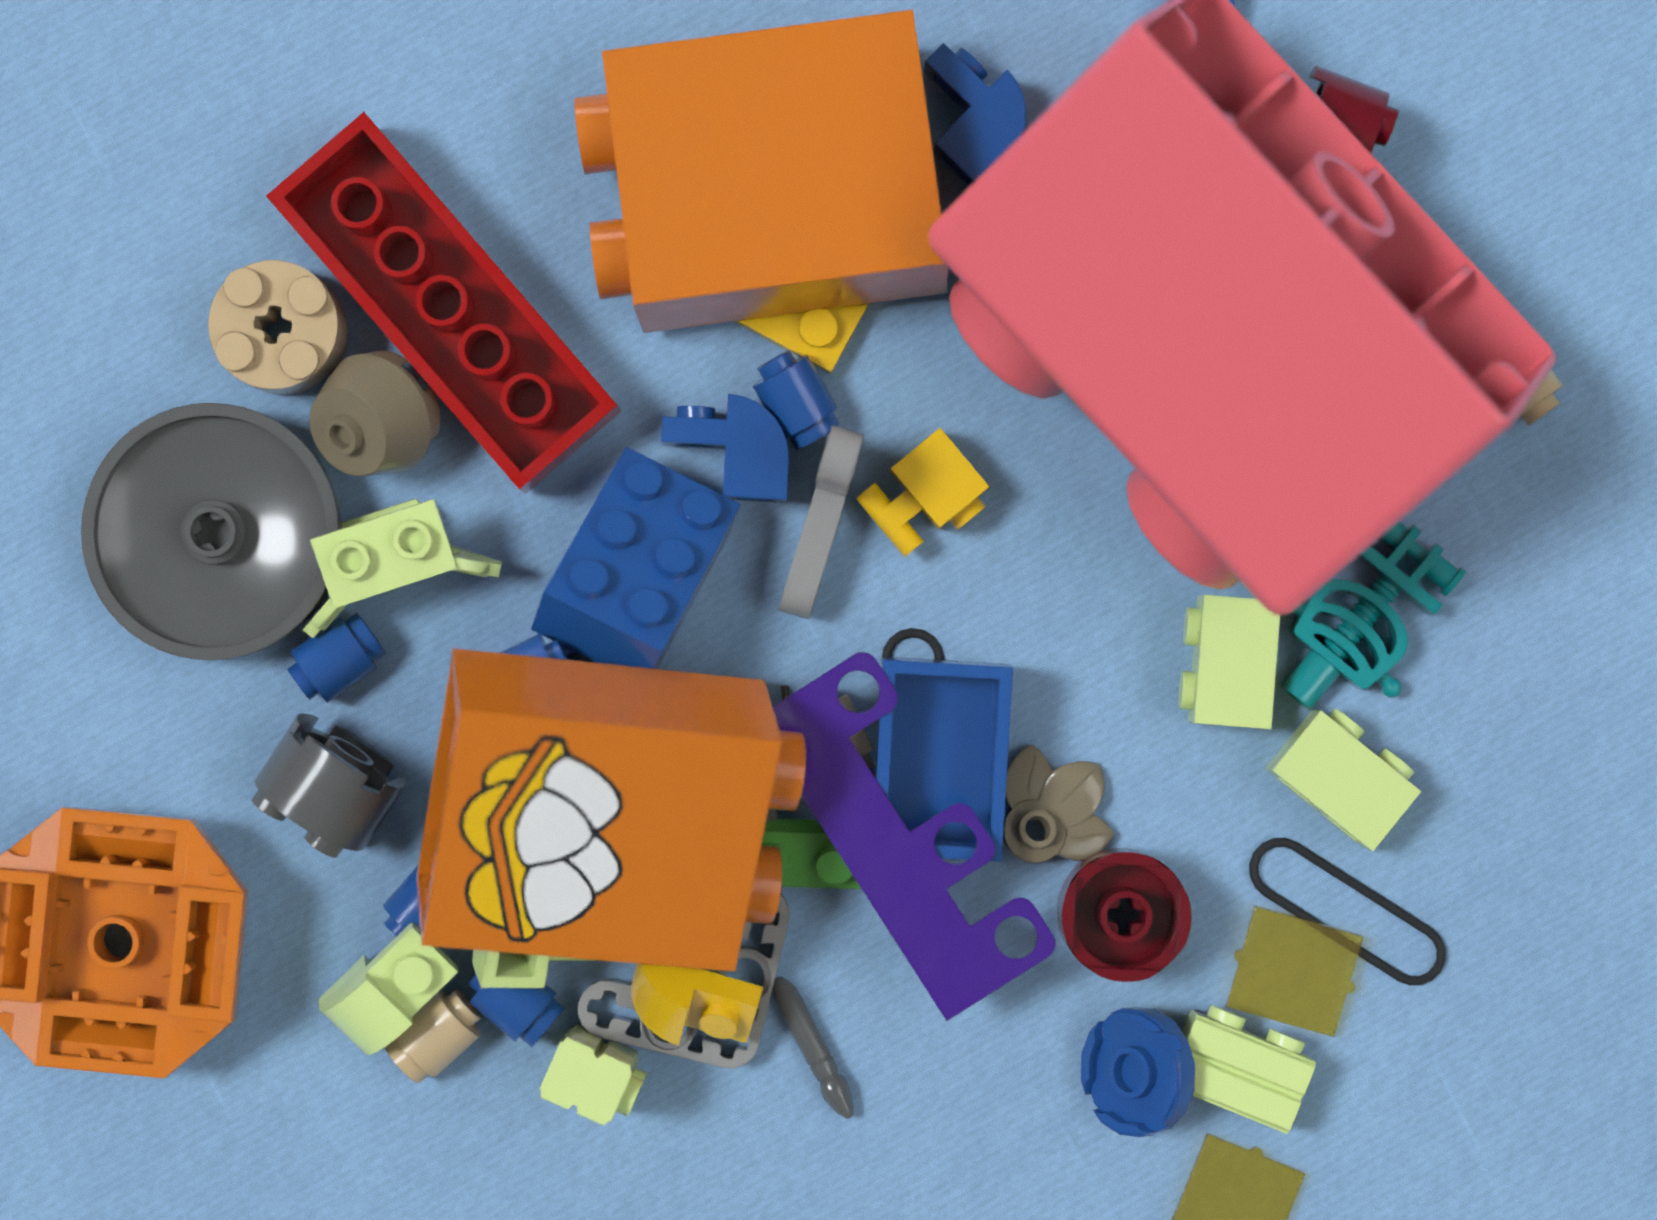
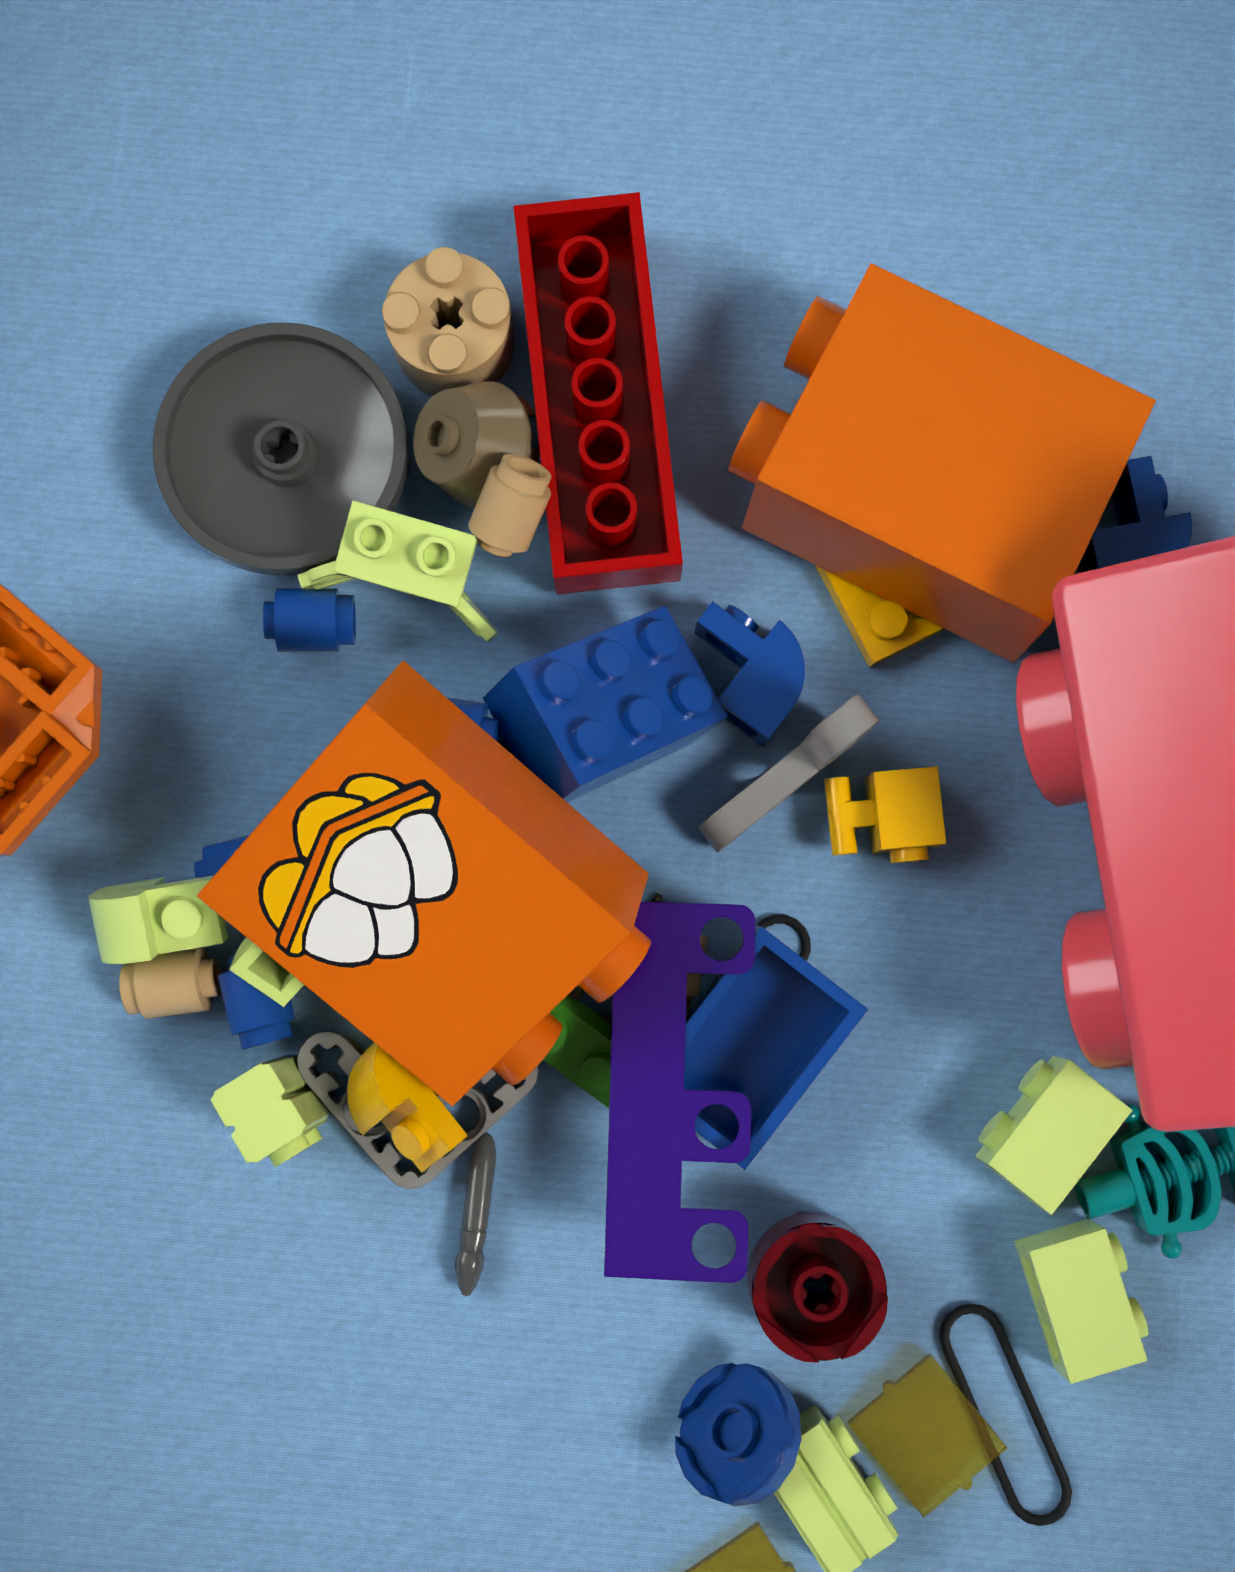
camera: 35 degrees right, 5 degrees down
(327, 786) = (226, 716): dark grey brick -> none
(443, 454) = (510, 505): none -> tan brick
(796, 398) = (832, 663): blue brick -> none
(1060, 802) = (824, 1151): dark tan plate -> none

